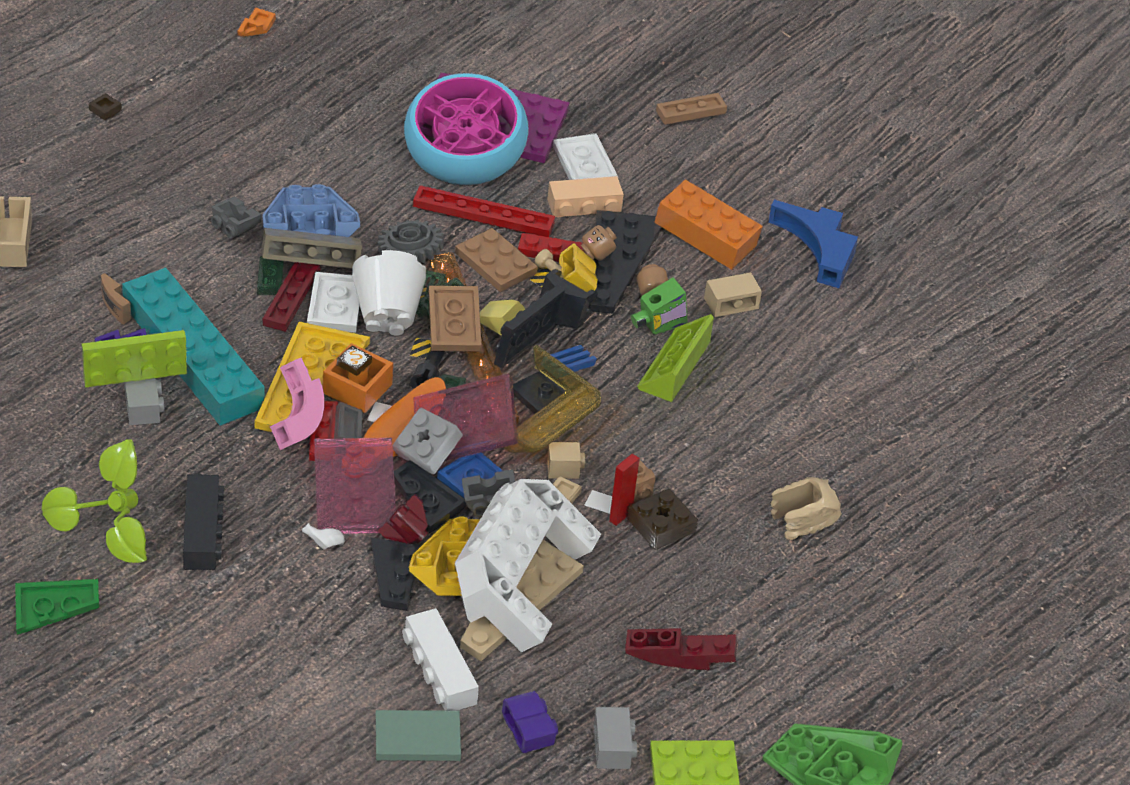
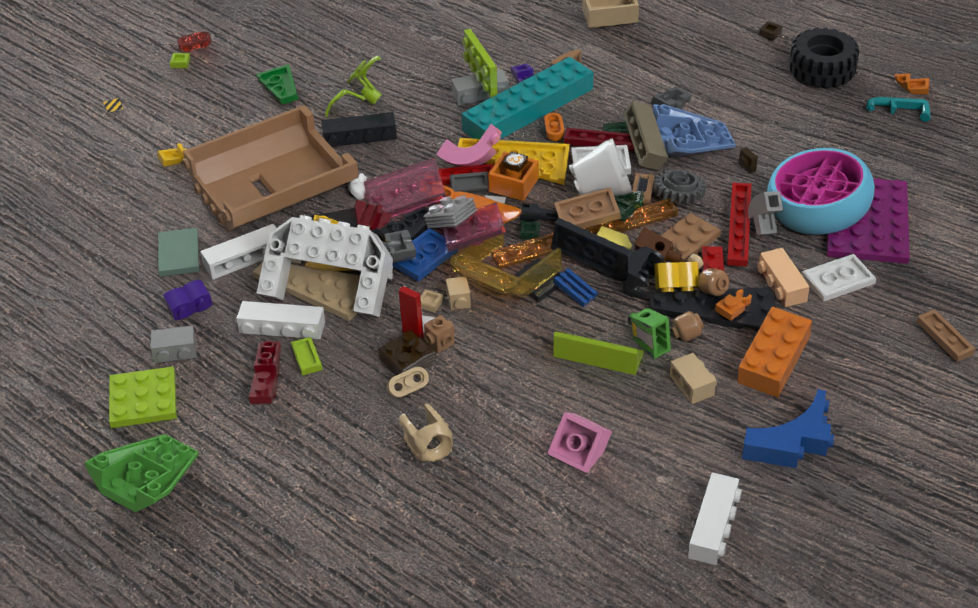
camera: 90 degrees right, 0 degrees up
(191, 735) = (171, 156): none -> yellow slope
(194, 73) = (824, 57): none -> black tyre
(250, 332) = (554, 126): none -> orange plate
(288, 42) = (905, 103): none -> teal piece
(296, 588) = (280, 153): none -> medium nougat panel
(372, 180) = (748, 160): none -> dark brown plate
(483, 178) = (762, 210): none -> light grey brick
(533, 272) = (659, 244): none -> reddish brown torso
(584, 629) = (281, 320): none -> white brick
(631, 240) = (733, 306): none -> orange plate
(644, 614) = (306, 356): none -> lime tile
(710, 521) = (406, 382): none -> tan plate
(816, 393) = (579, 441): none -> bright pink slope
(927, 316) = (714, 519): none -> white brick

